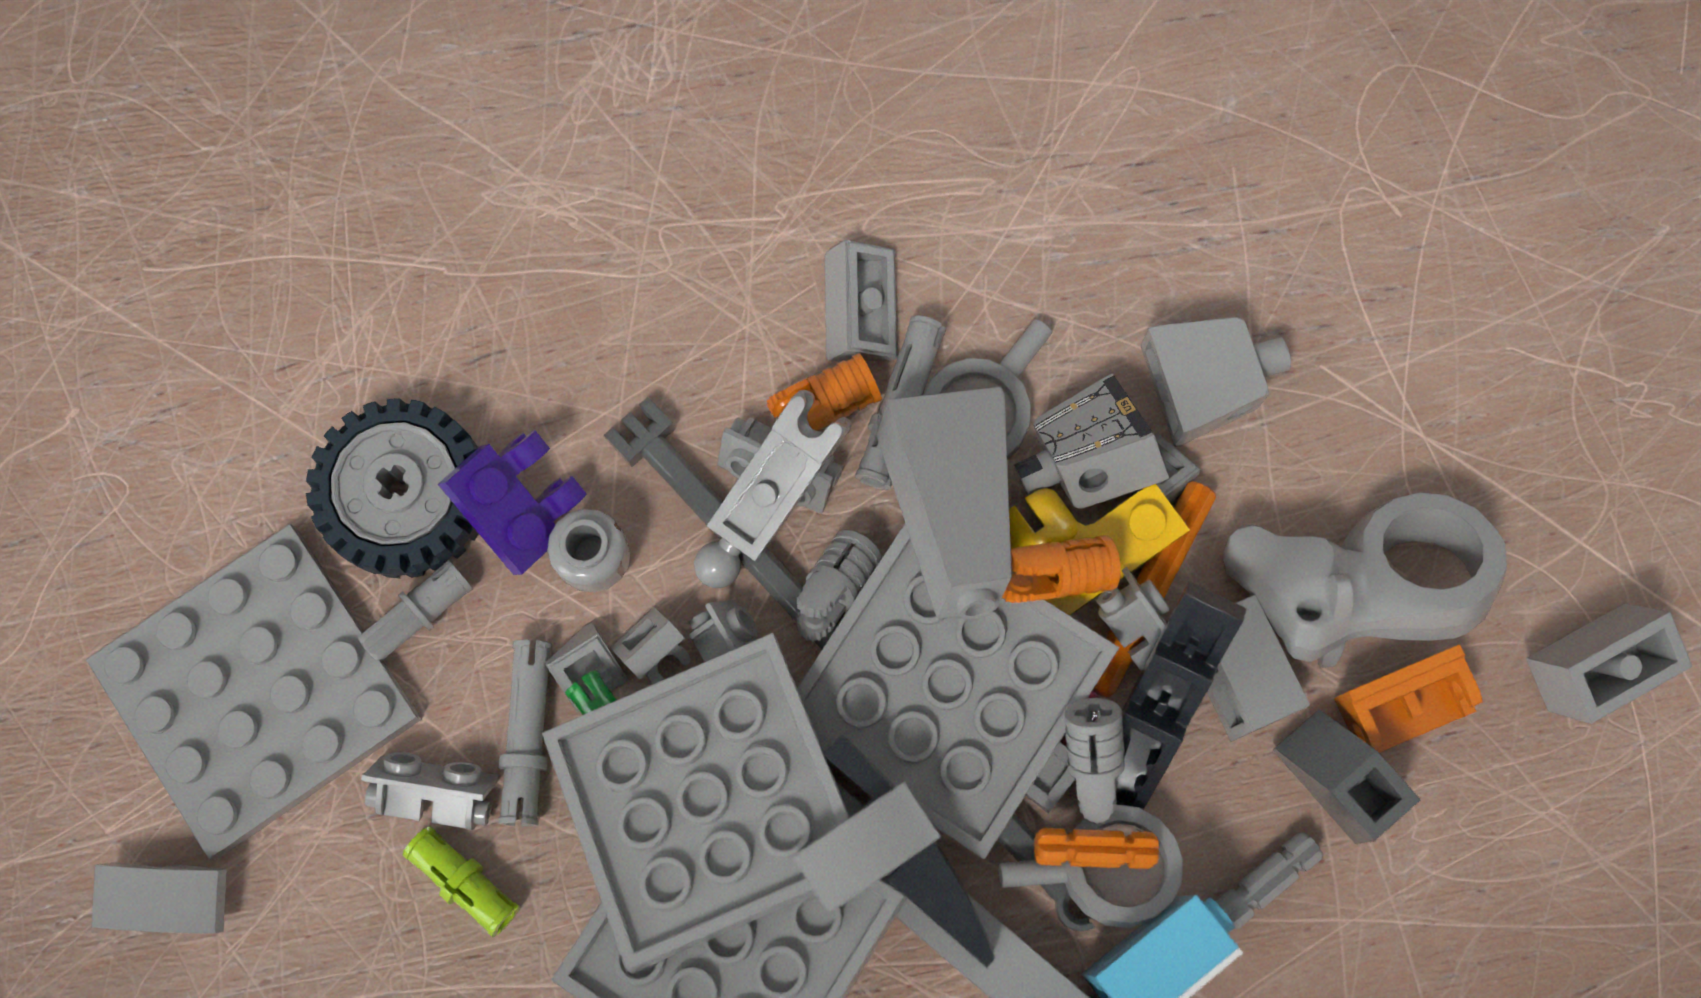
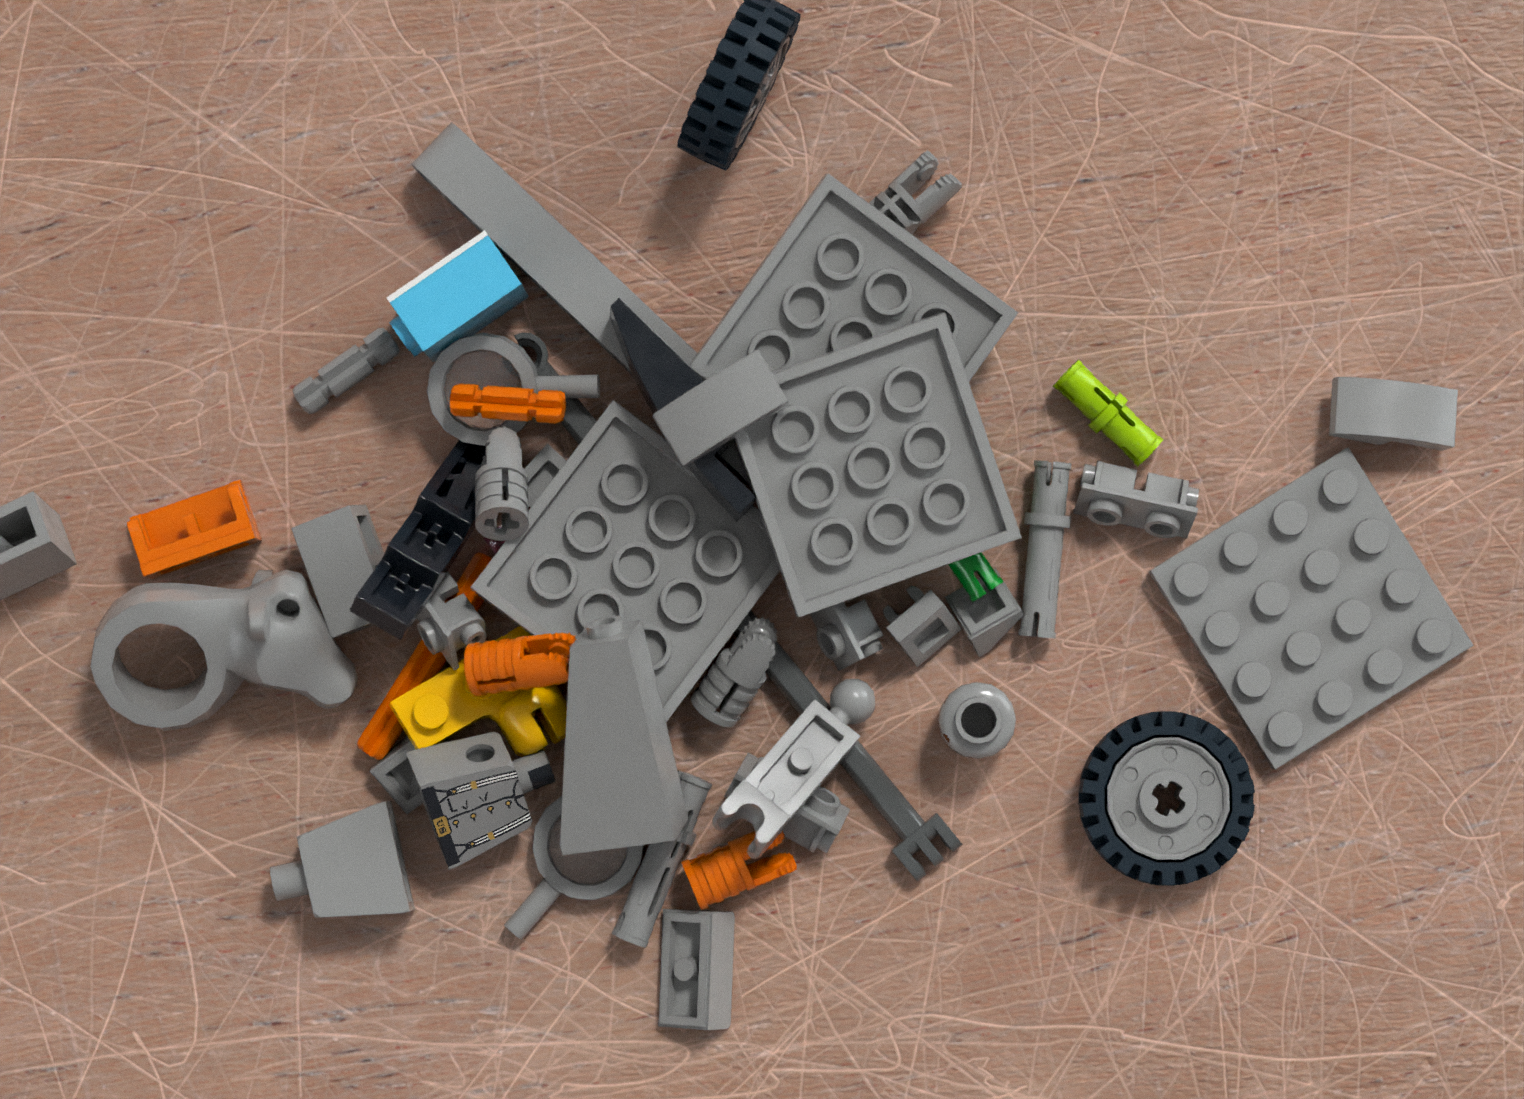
camera: 175 degrees left, 10 degrees up
(415, 610) = (1150, 674): light grey axle -> none
(500, 505) = (1060, 765): dark purple plate -> none
(1346, 777) = (265, 460): dark grey slope -> none

